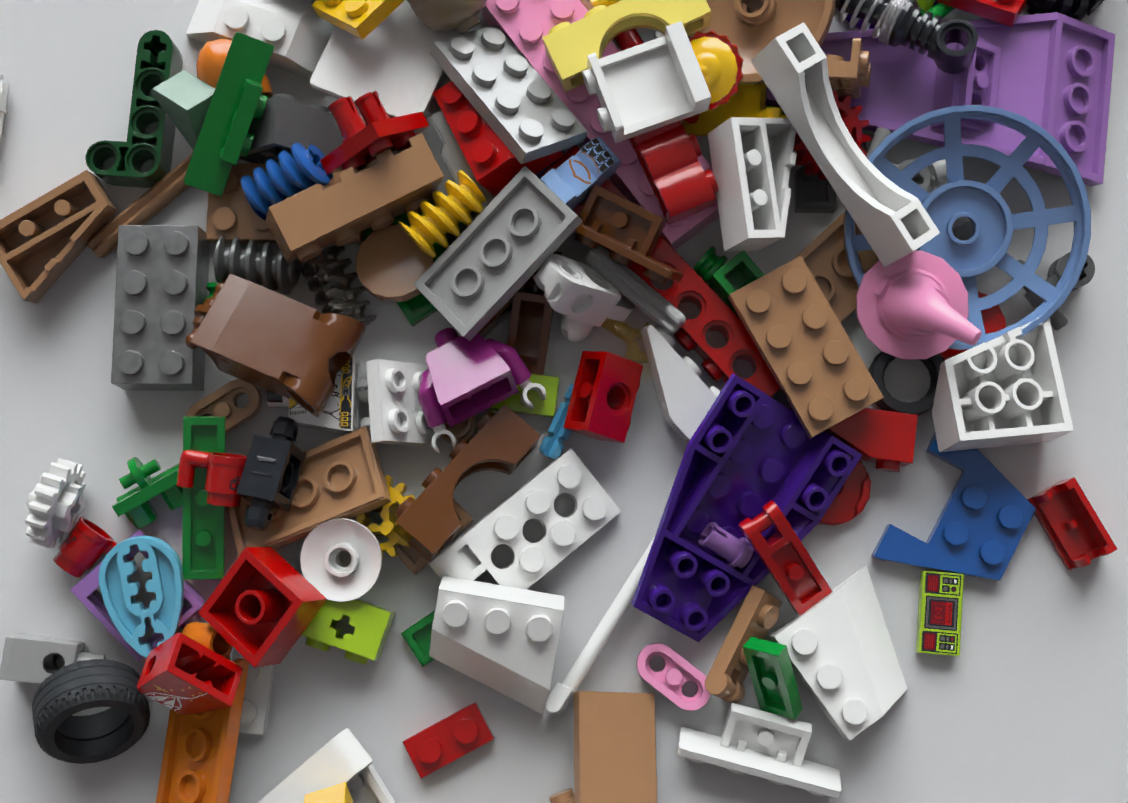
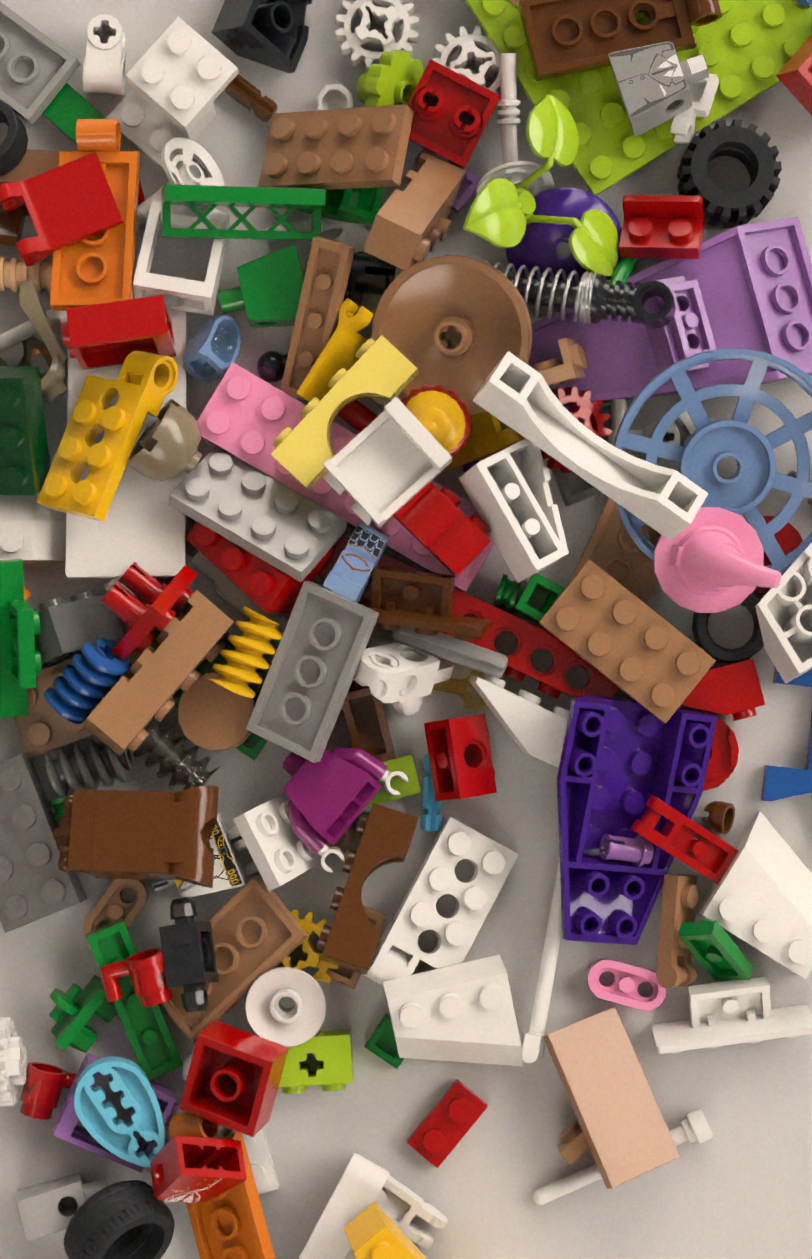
camera: 20 degrees left, 5 degrees up
(826, 554) = (720, 816): none -> reddish brown hinge

